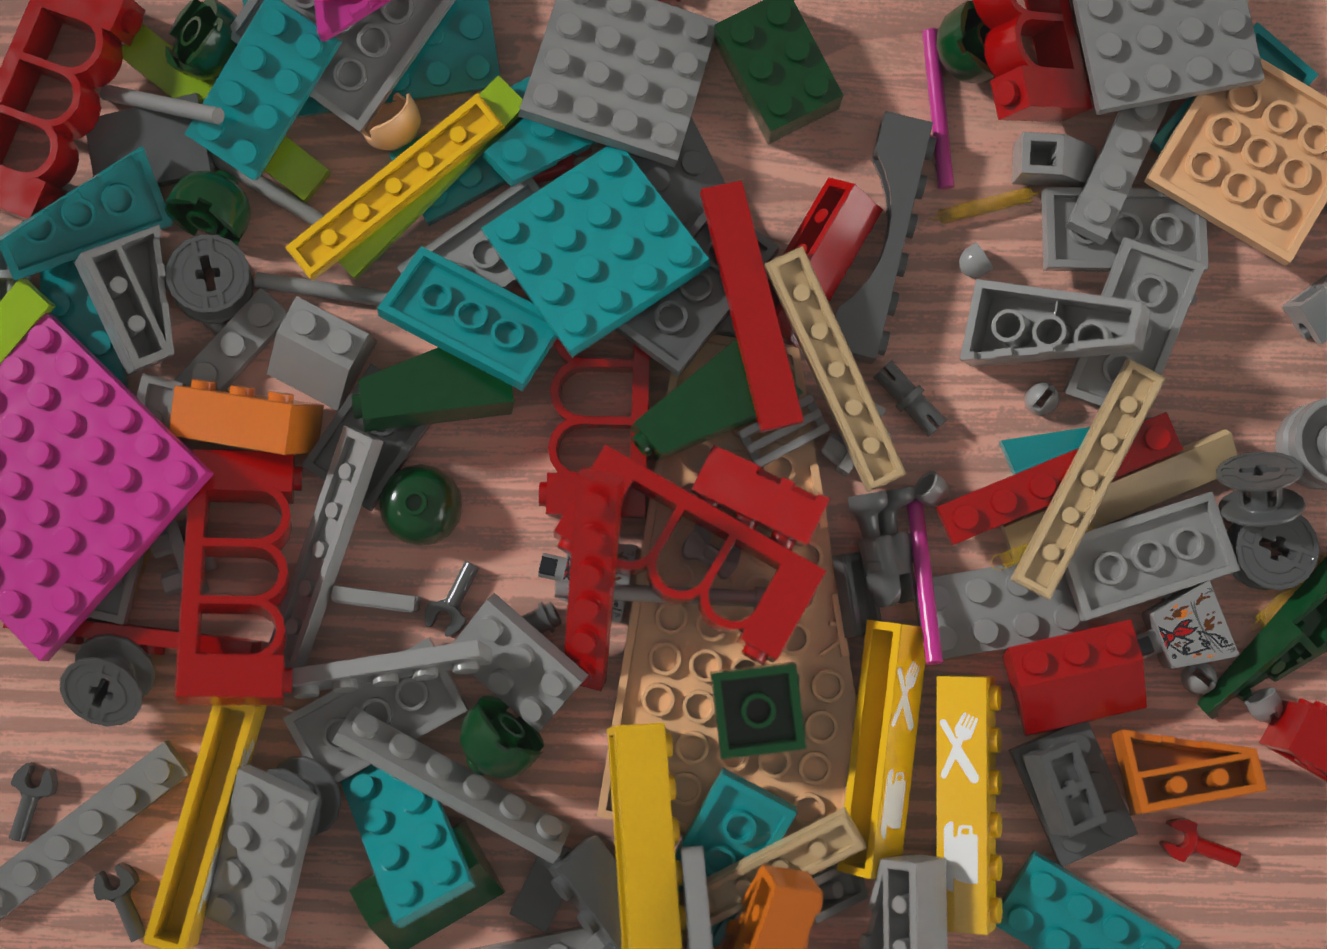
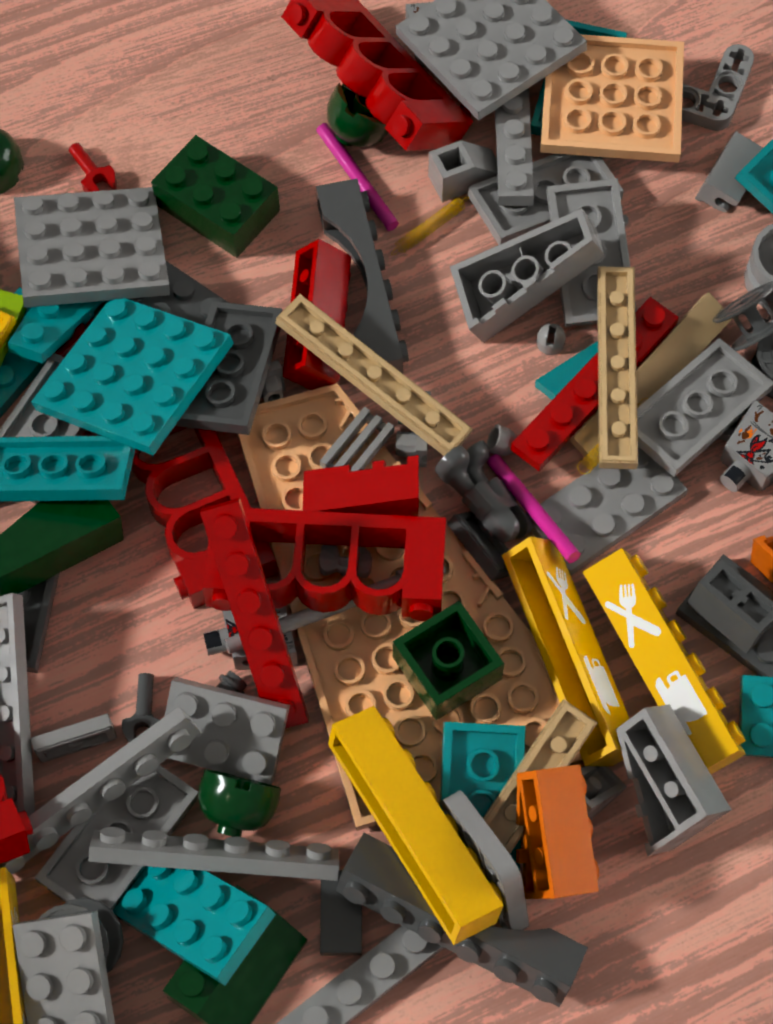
camera: 30 degrees left, 20 degrees down
(420, 505) = (78, 647): dark green cylinder -> none
(699, 408) = (288, 441): dark green slope -> none
(751, 306) = (283, 356): red tile -> none
(910, 398) = (447, 383): dark grey pin -> none
(974, 262) = (441, 264): light grey hinge -> none
(1077, 677) = (694, 522): red slope -> none

